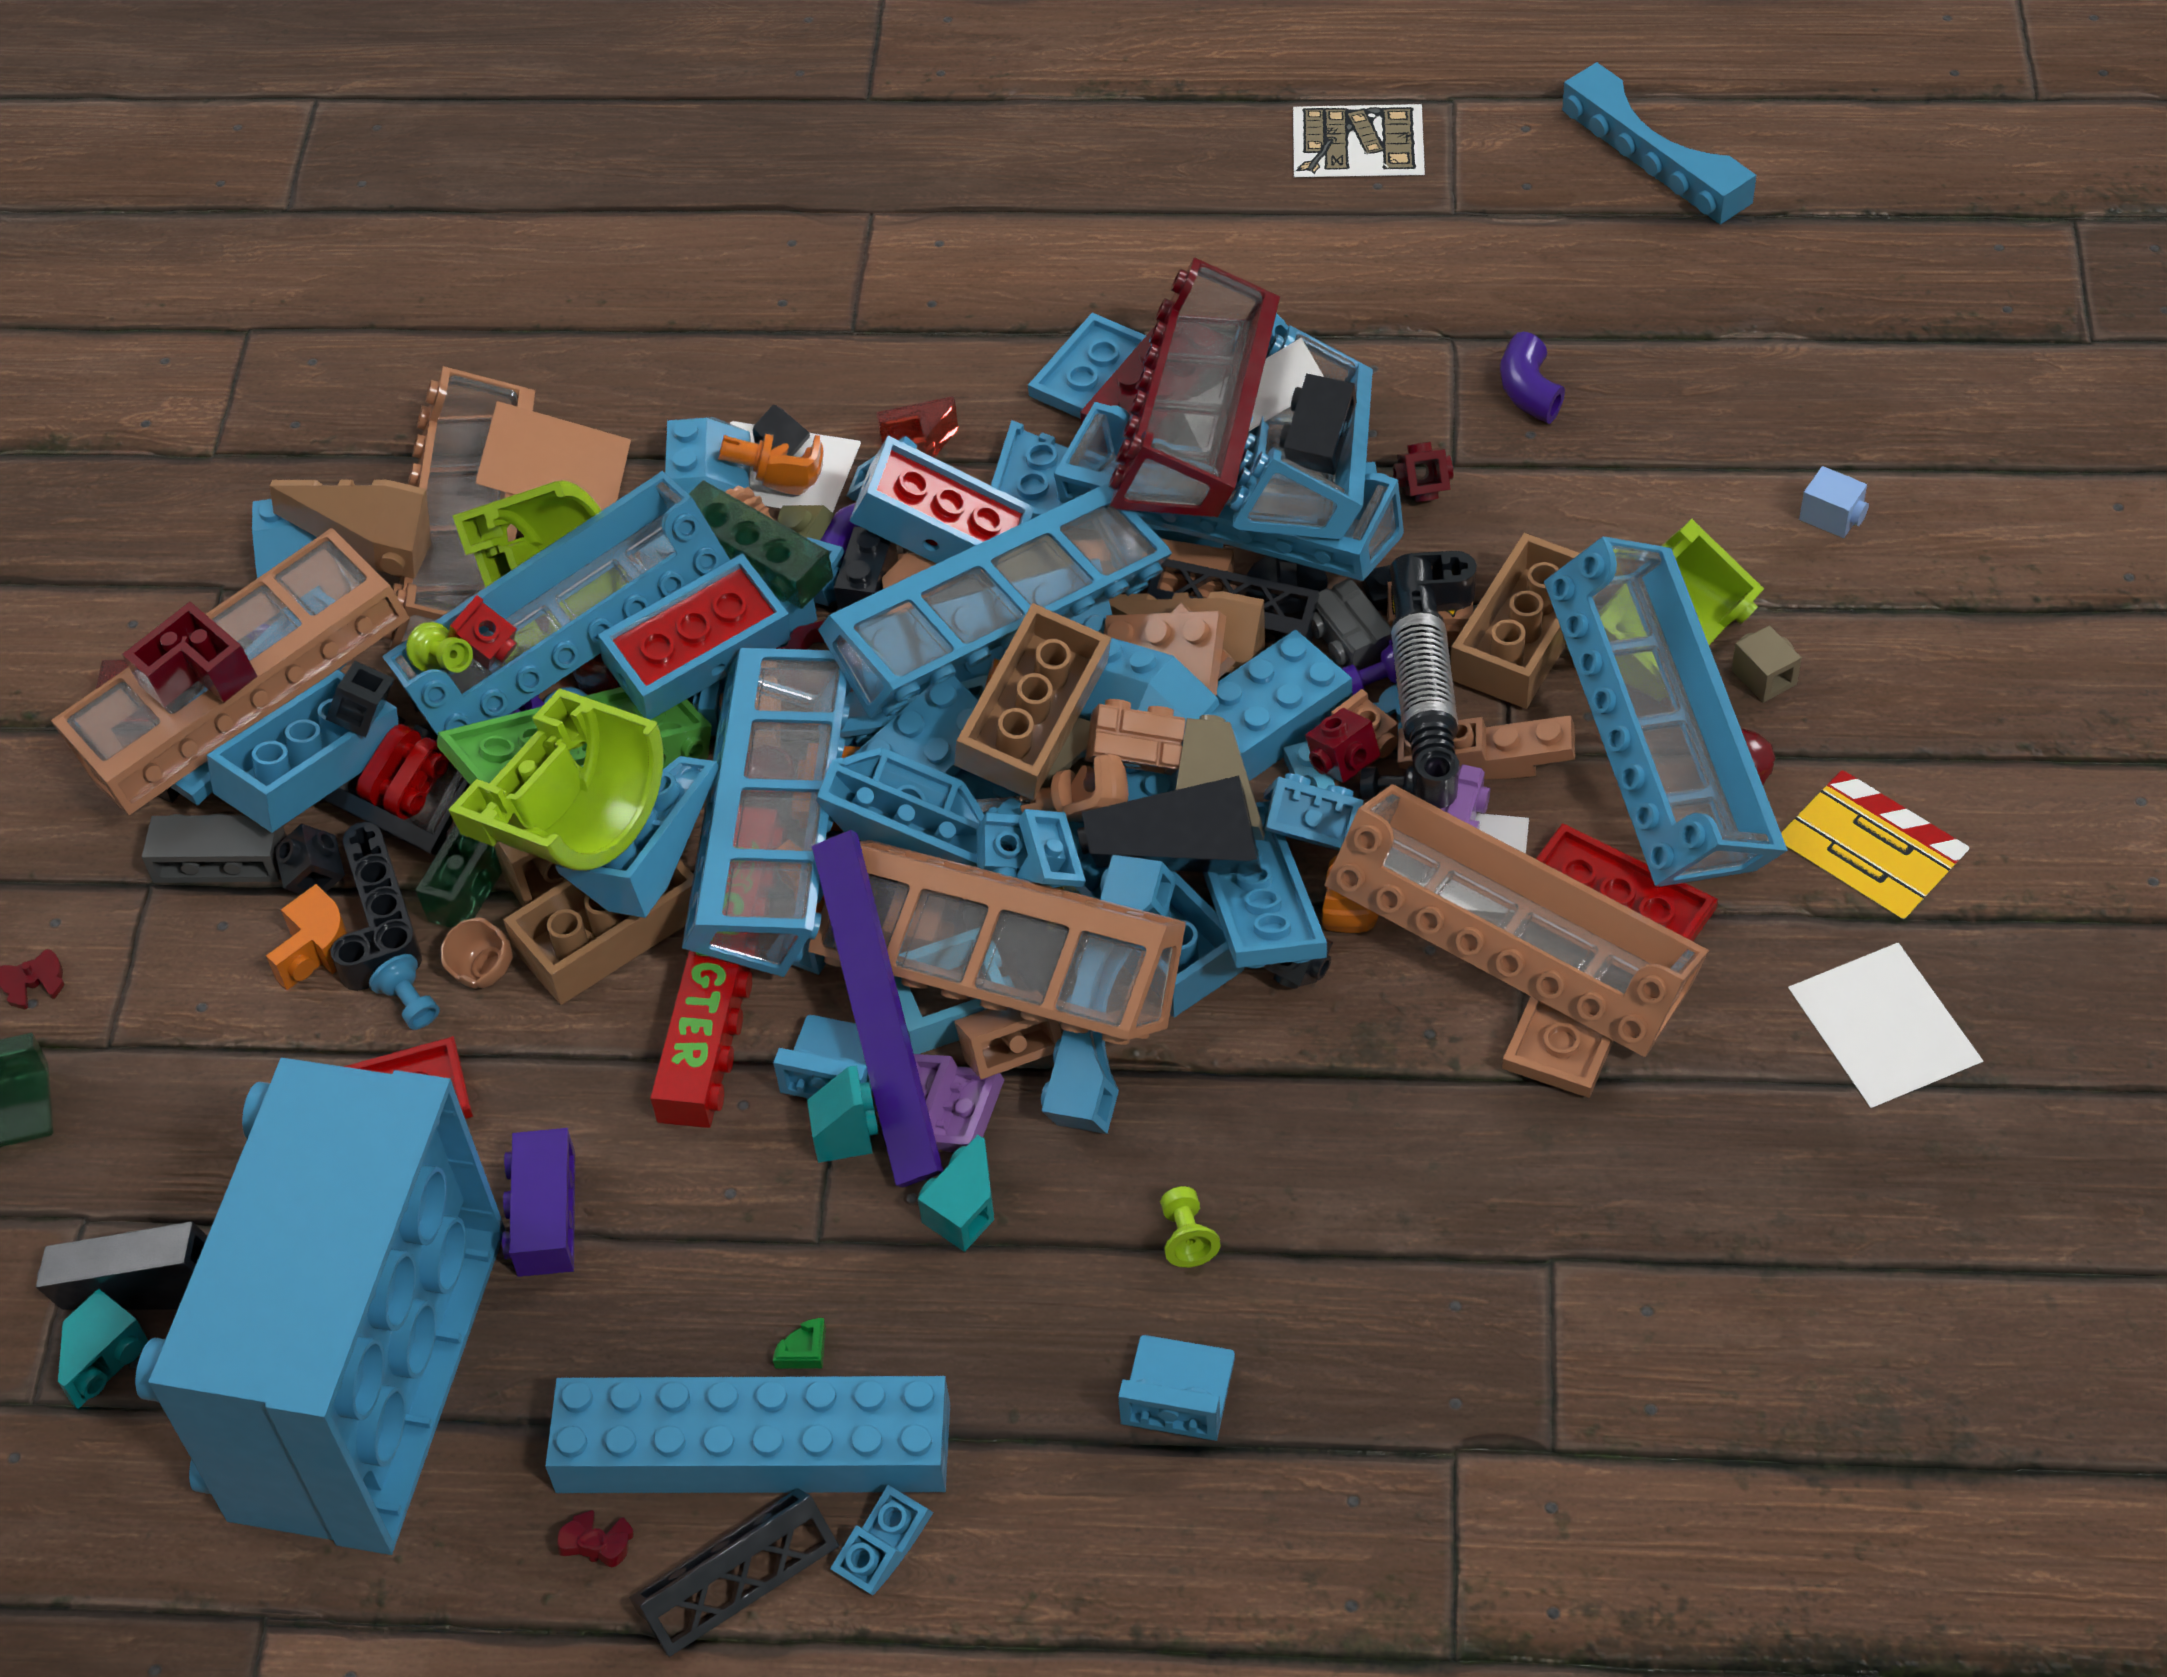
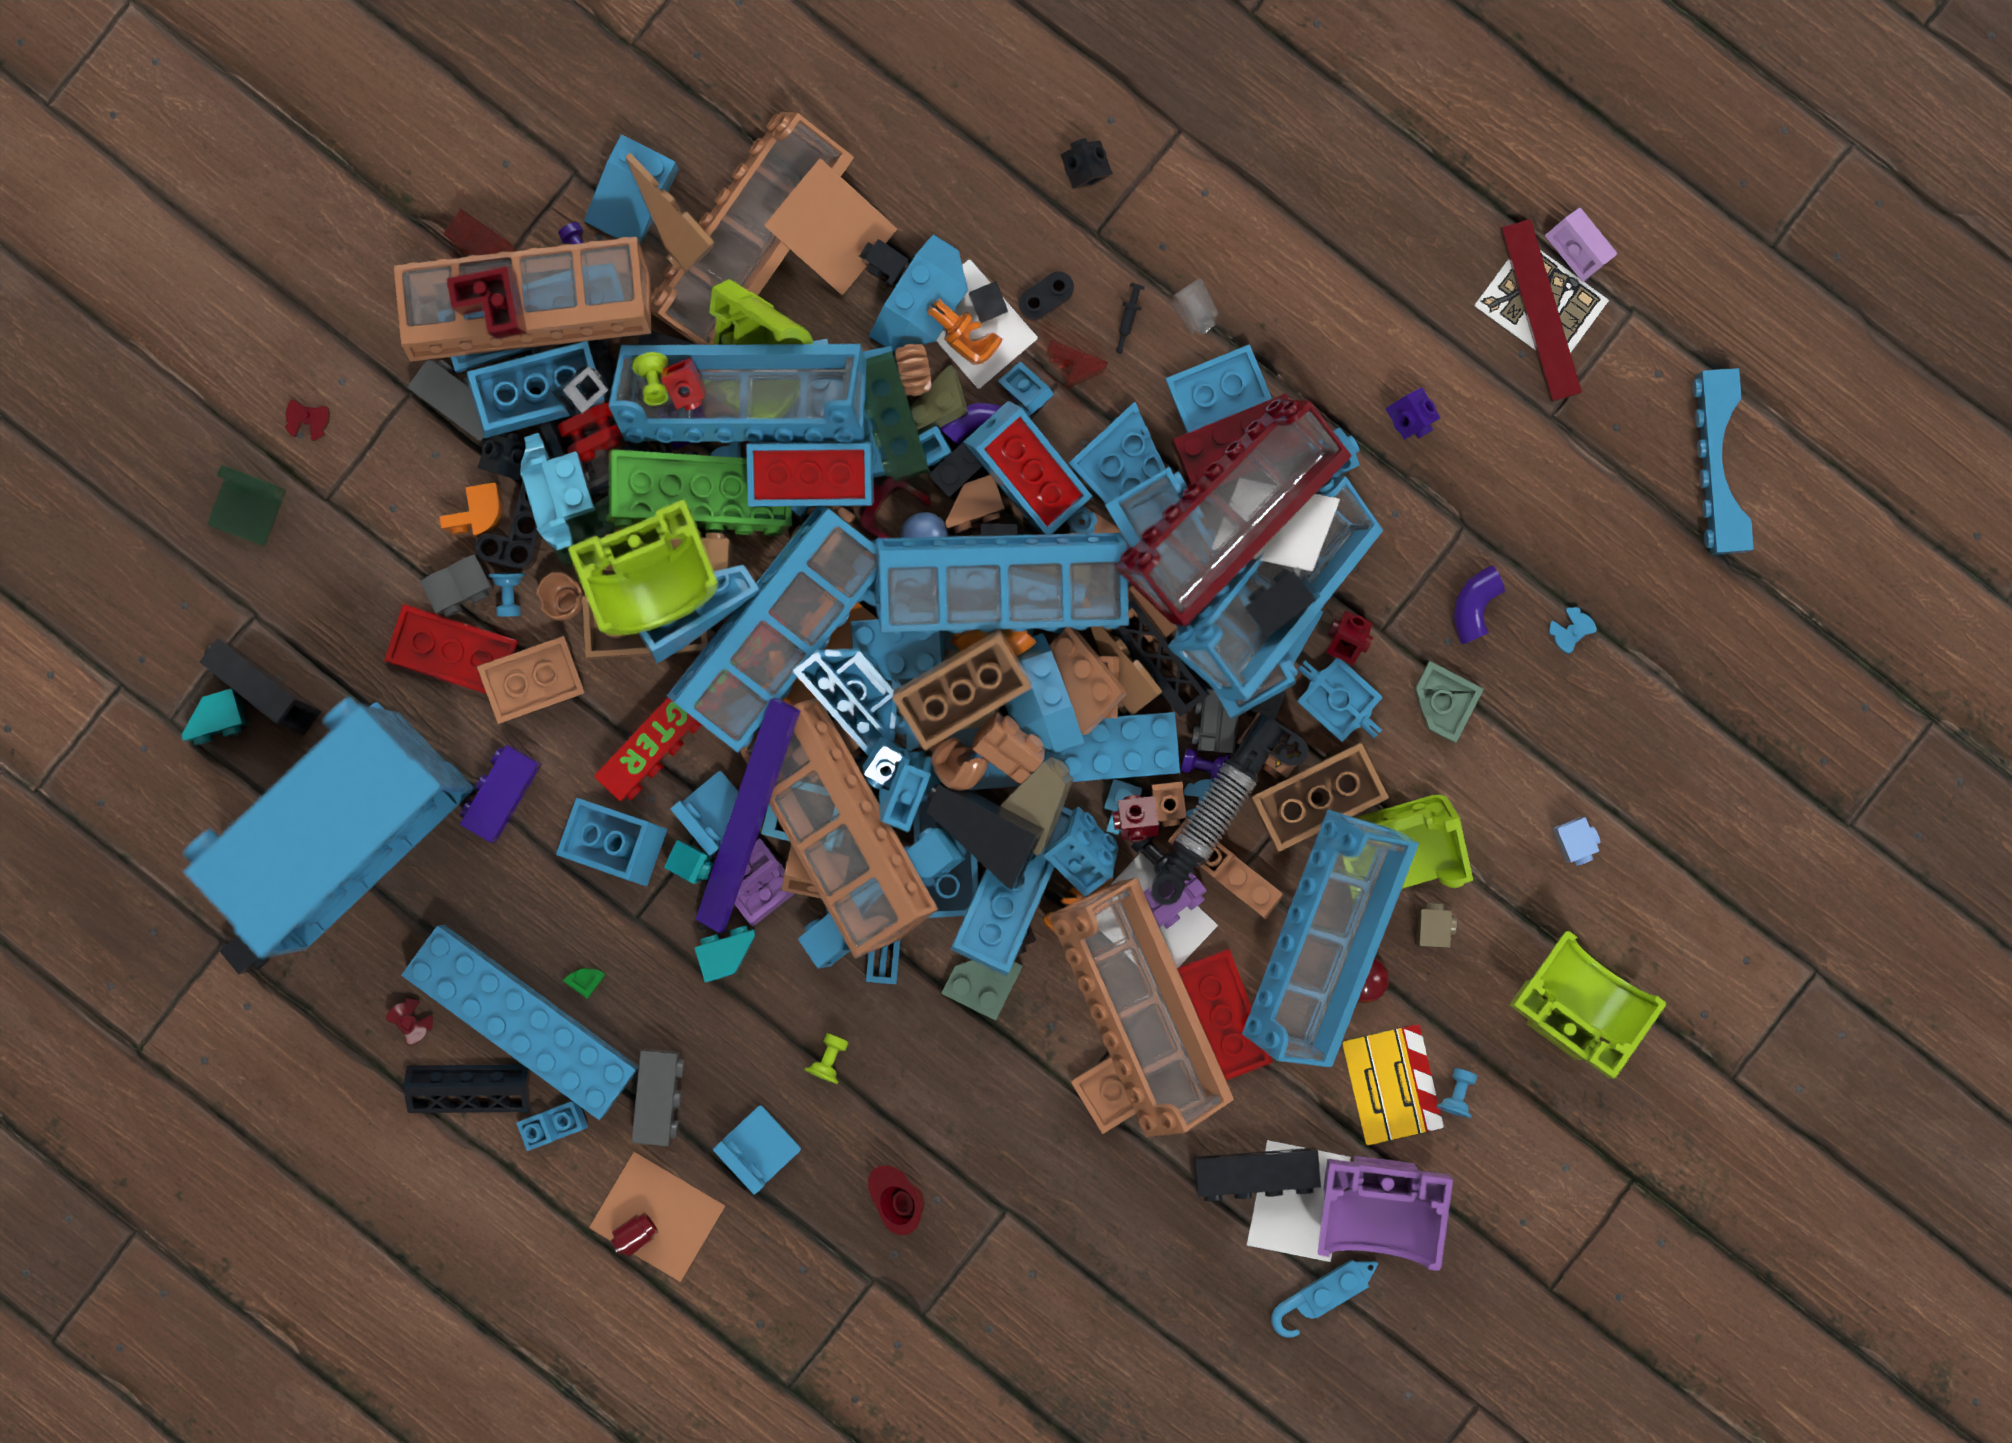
camera: 30 degrees right, 35 degrees up
(307, 1592) = (242, 957): none -> black brick
(336, 1021) = (457, 585): none -> dark grey brick
(394, 834) = (554, 490): none -> medium azure plate
(500, 1056) = (530, 679): none -> nougat plate
(634, 457) = (882, 261): none -> black brick
(726, 1164) = (611, 841): none -> dark azure slope
(794, 270) = (1086, 163): none -> black brick
(840, 401) = (1046, 295): none -> black plate
(940, 358) = (1129, 315): none -> black piece
(1000, 1409) = (657, 1097): none -> dark grey brick
(1006, 309) = (1195, 308): none -> clear slope
(1093, 1591) = (634, 1234): none -> dark red brick
(1108, 1565) = (676, 1208): none -> nougat sticker
(1178, 1107) = (894, 971): none -> dark azure tile
(1308, 1036) = (981, 987): none -> sand green plate
(1314, 270) = (1413, 414): none -> dark purple brick
(1351, 77) = (1581, 244): none -> lavender panel
(1364, 141) = (1541, 310): none -> dark red tile
(1400, 1314) = (896, 1199): none -> dark red piece
(1468, 527) = (1339, 699): none -> dark azure plate
(1577, 472) = (1446, 701): none -> sand green plate
(1650, 358) = (1581, 626): none -> dark azure piece
(1807, 1013) = (1257, 1172): none -> black brick
(1961, 807) = (1455, 1104): none -> dark azure piece
(1988, 960) = (1385, 1210): none -> medium lavender piece
(2006, 634) = (1586, 1004): none -> lime piece
(2010, 1094) = (1325, 1293): none -> dark azure plate

